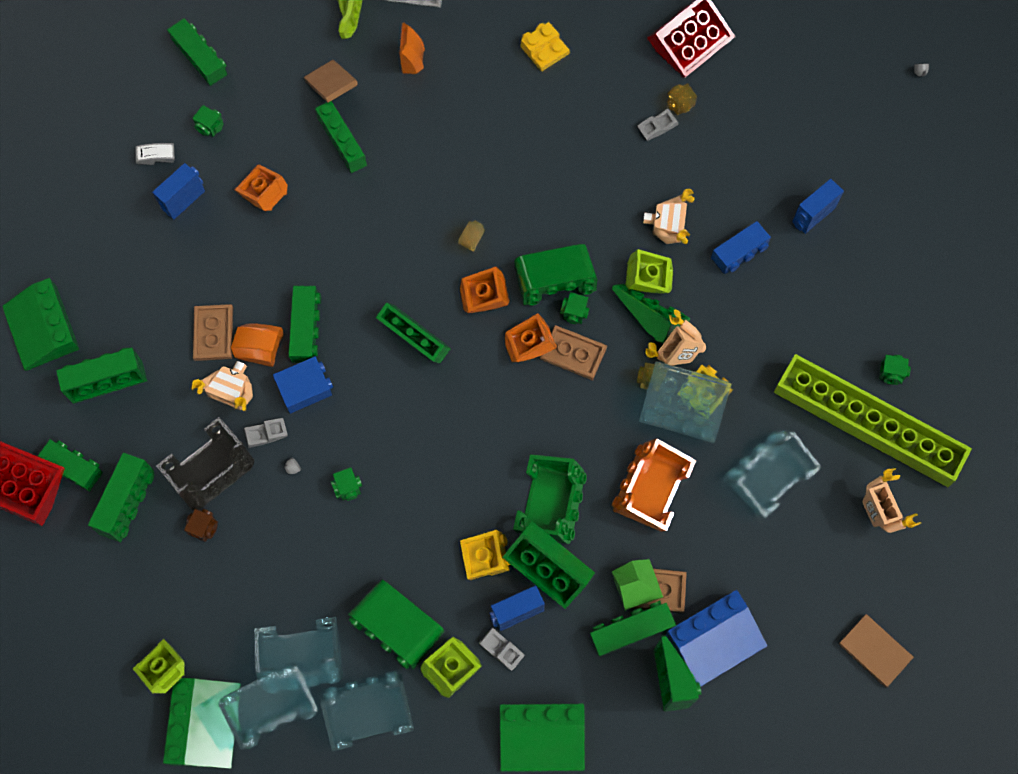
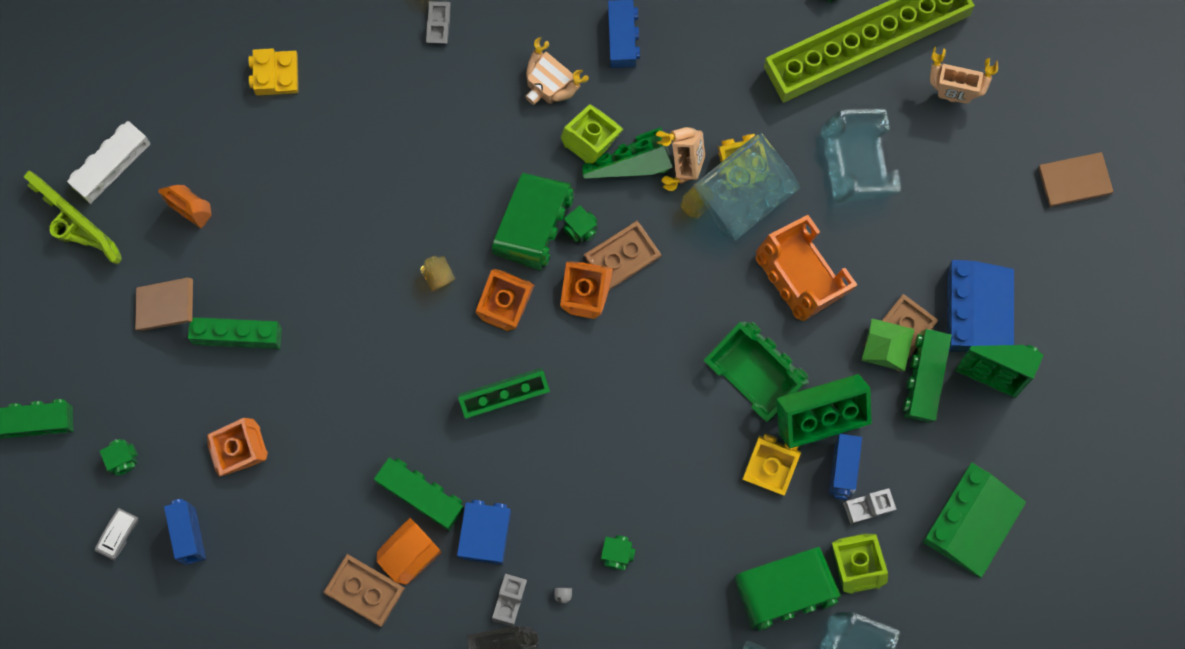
camera: 55 degrees left, 5 degrees up
(227, 386) = (438, 607): torso -> none

